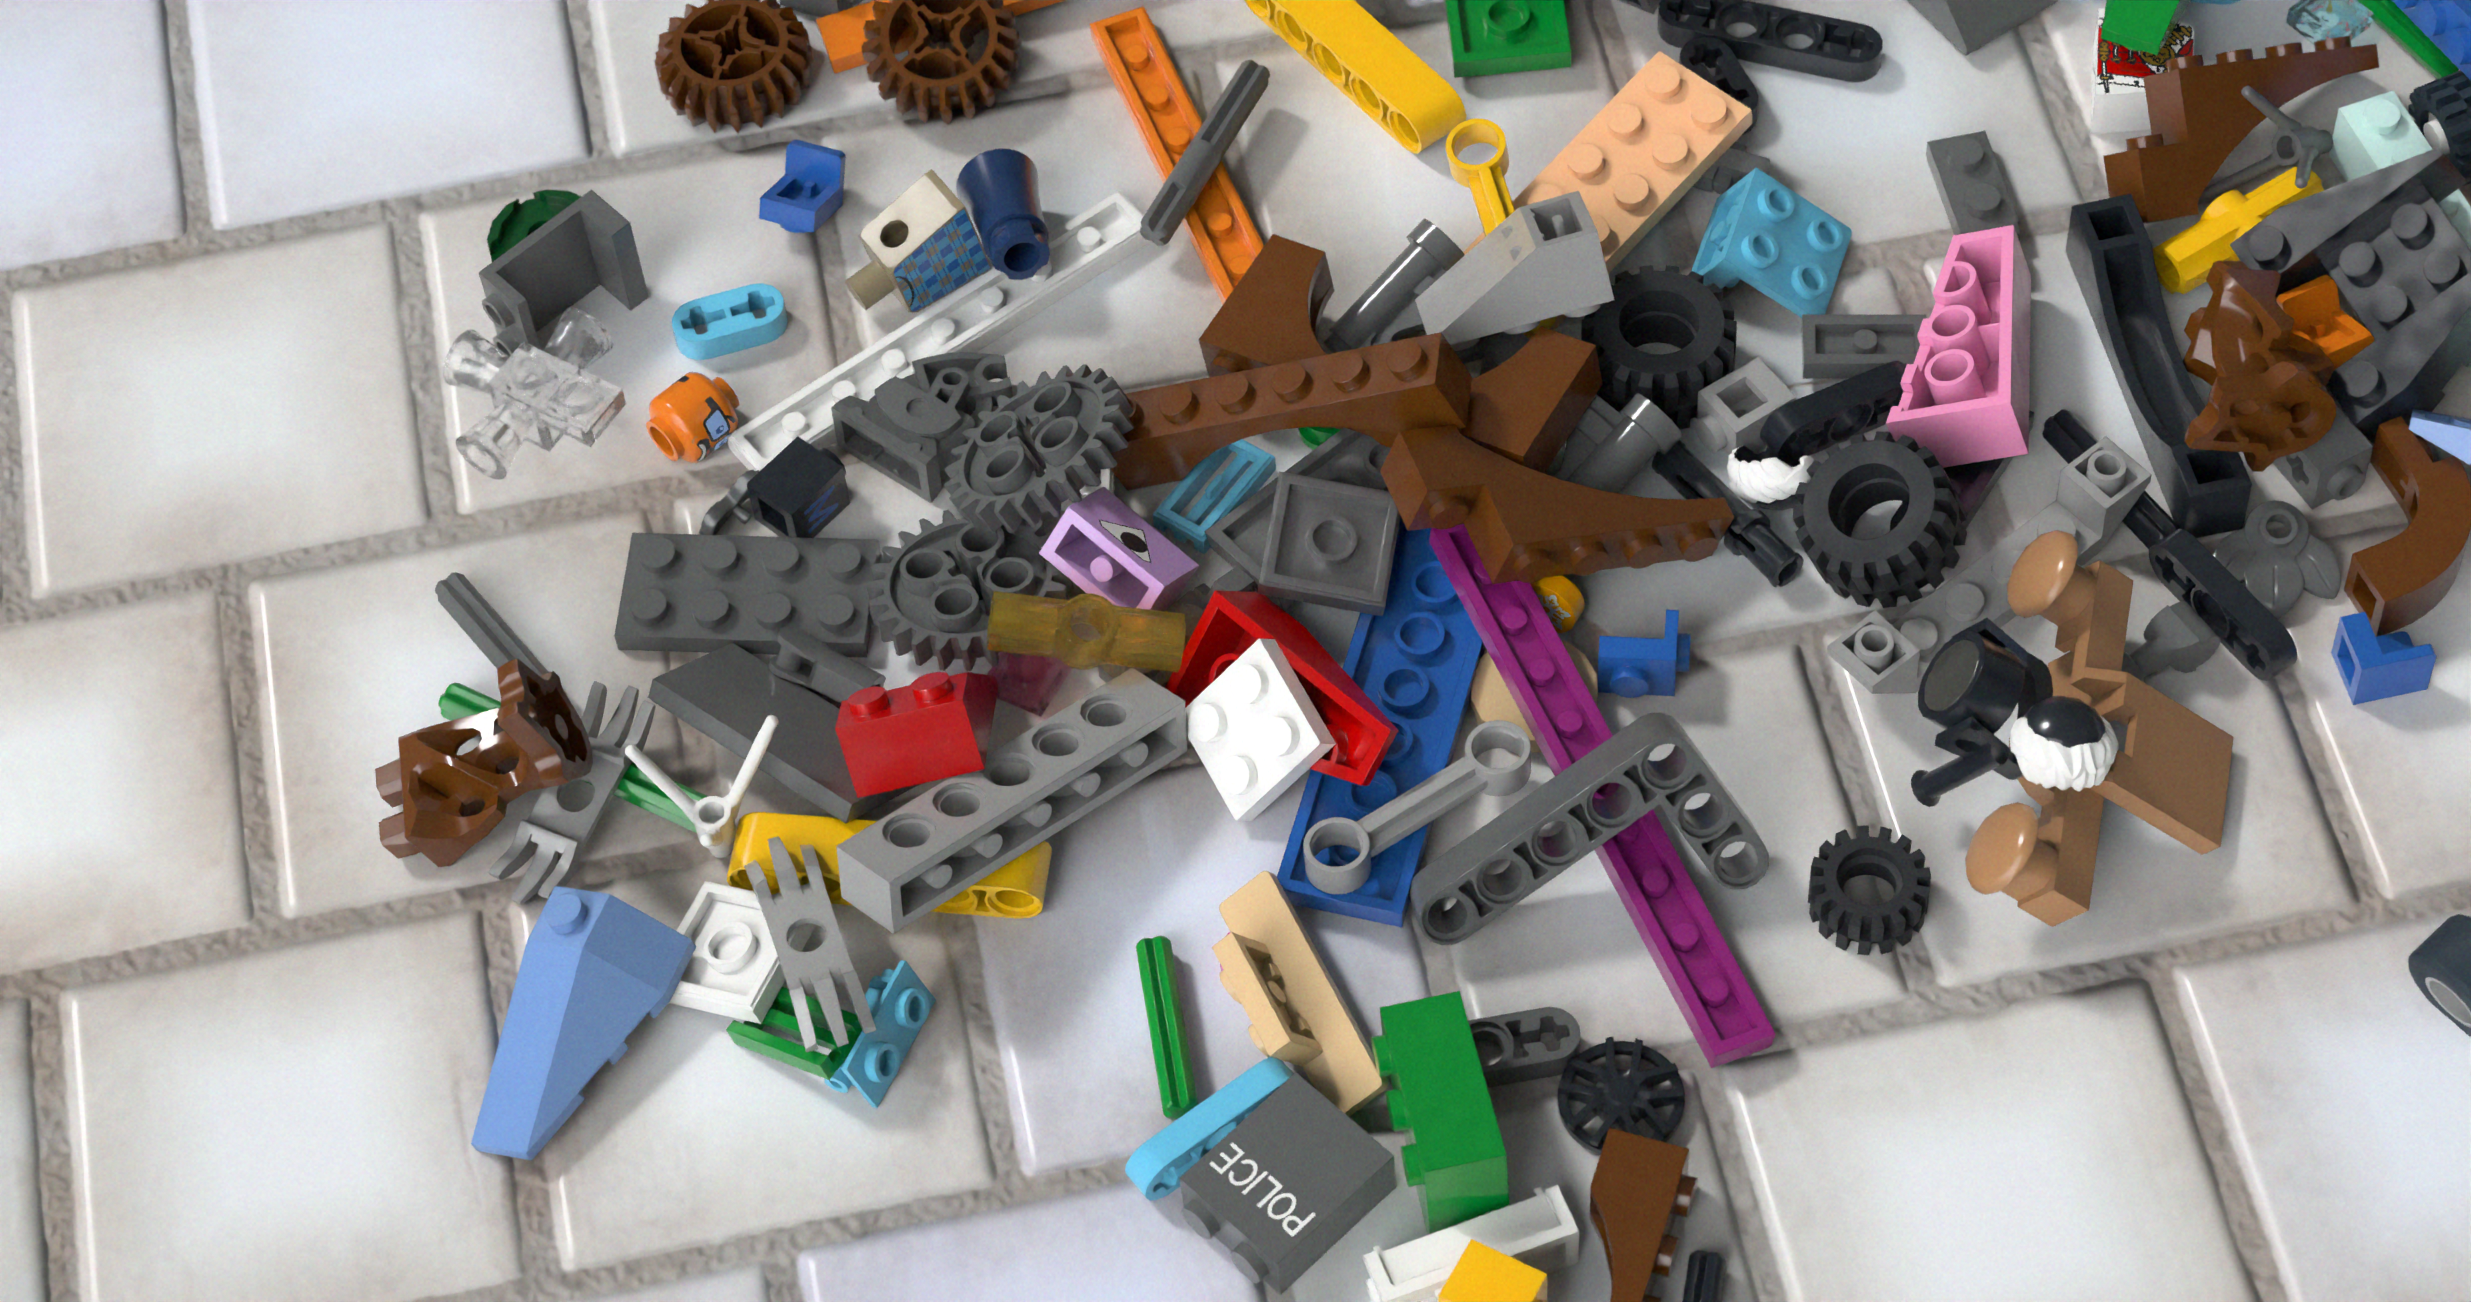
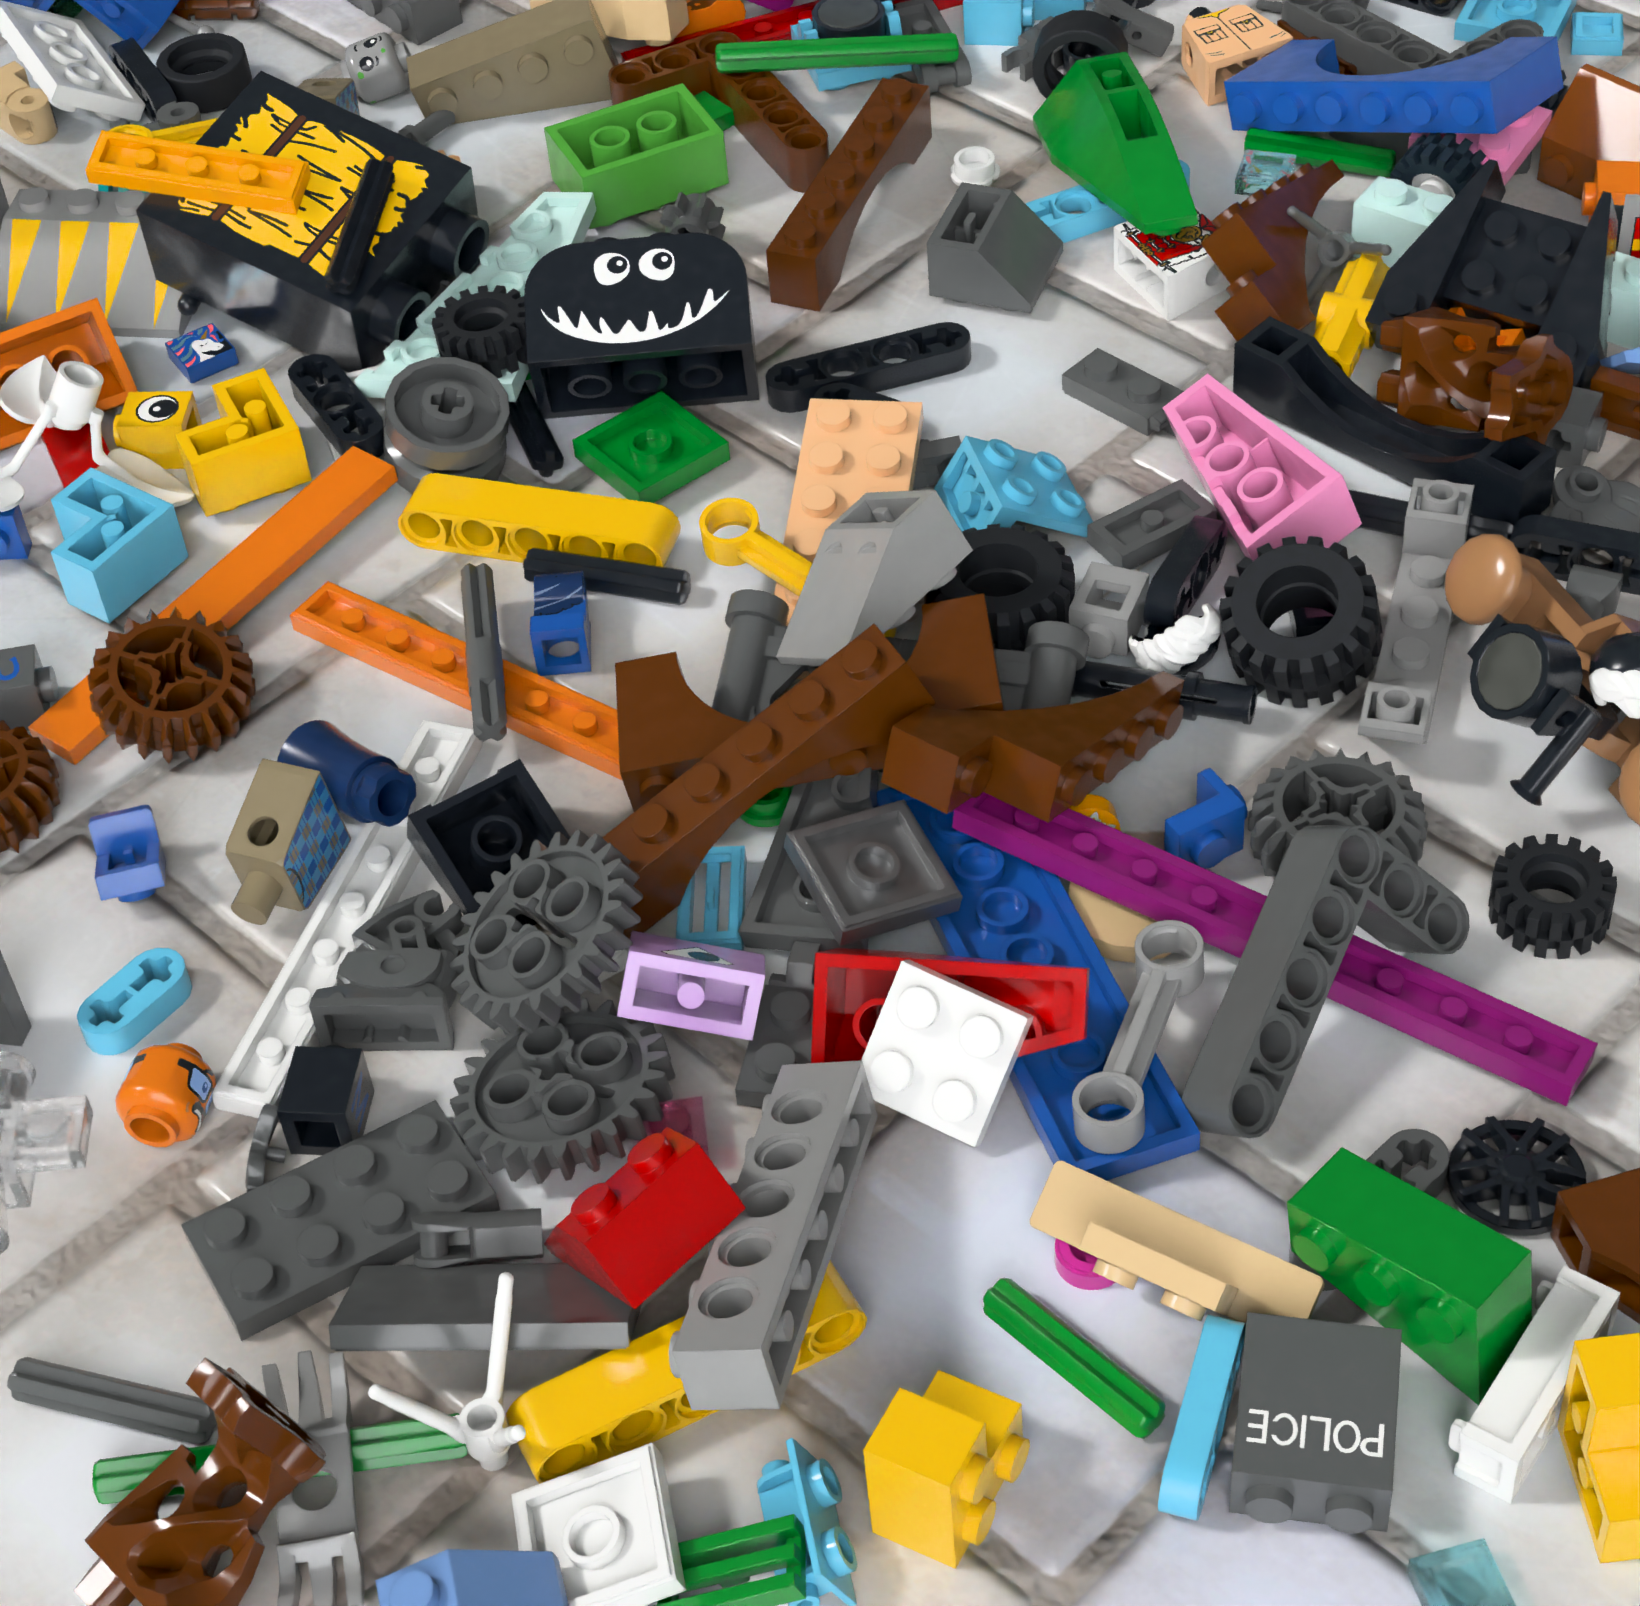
camera: 35 degrees left, 10 degrees down
(812, 970) = (725, 1492): light grey piece -> none
(998, 1047) = (941, 1465): none -> yellow brick
(1075, 328) = (480, 831): none -> black slope
(1127, 634) = (694, 1060): clear yellow piece -> none
(1295, 156) = (560, 617): none -> blue leg
(1372, 131) = (613, 576): none -> black axle
(1791, 727) = (1334, 793): none -> dark grey gear

